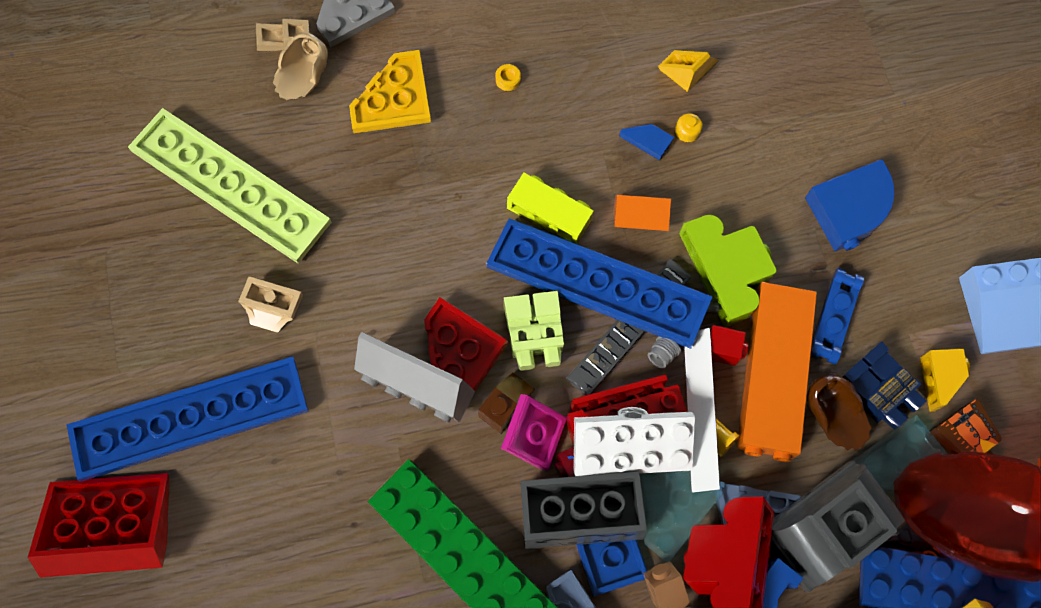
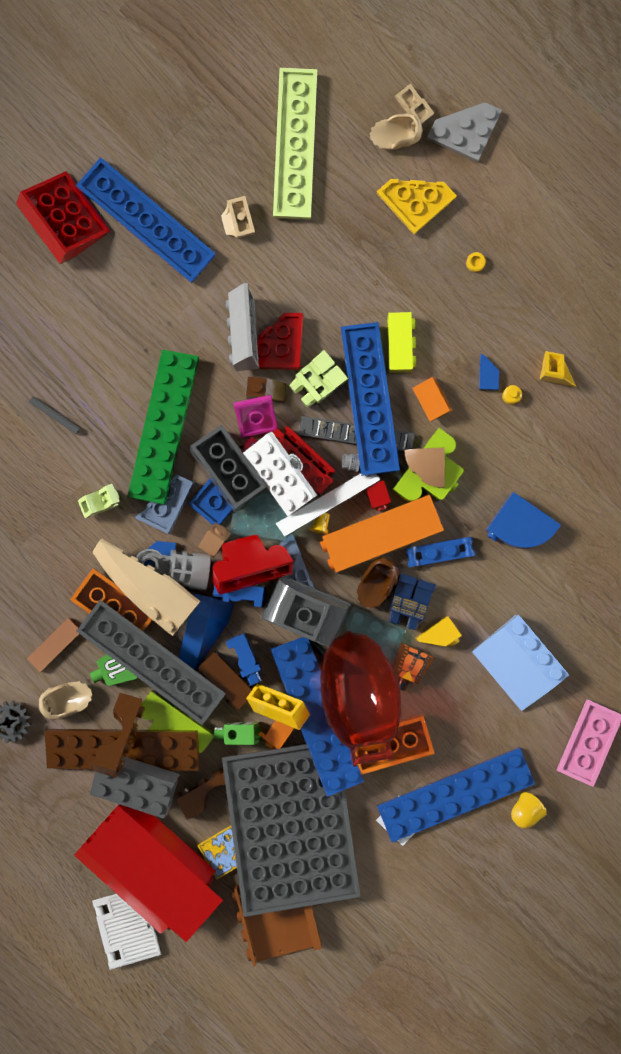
camera: 60 degrees right, 15 degrees up
(725, 260) = (428, 465): none -> medium nougat brick

